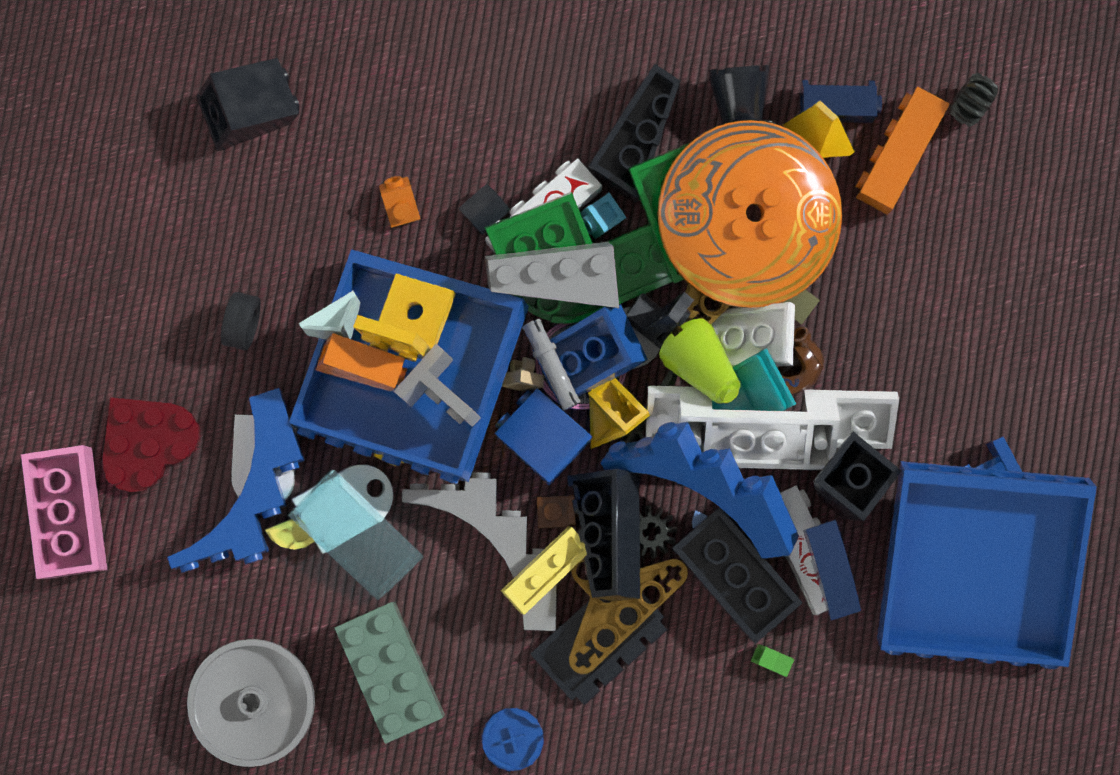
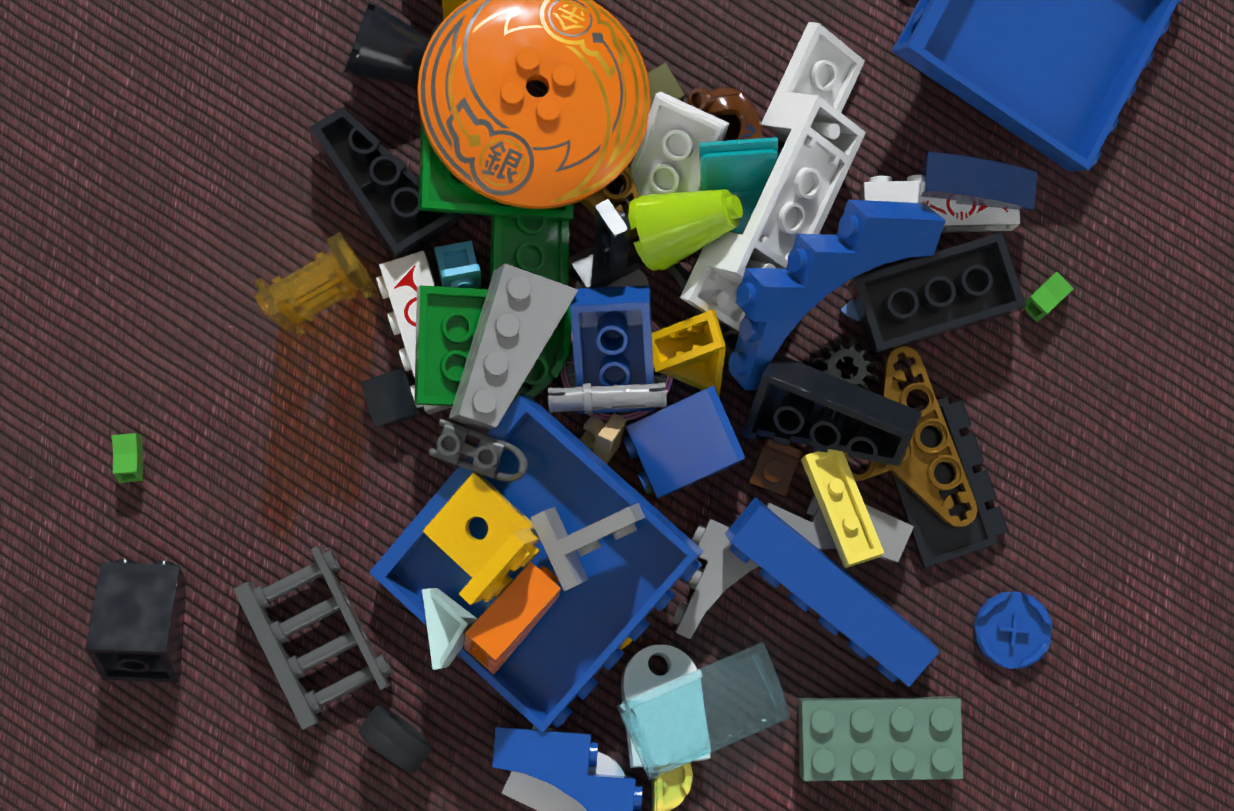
camera: 65 degrees left, 0 degrees up
(278, 203) = (290, 669): none -> dark grey fence
(361, 43) = (127, 457): none -> bright green piece
(399, 201) = (335, 492): orange bracket -> none
(467, 294) = (486, 456): none -> dark grey piece
(479, 589) = (831, 592): none -> blue brick
(538, 119) = (315, 286): none -> clear yellow fence
(855, 479) = (892, 108): black slope -> none

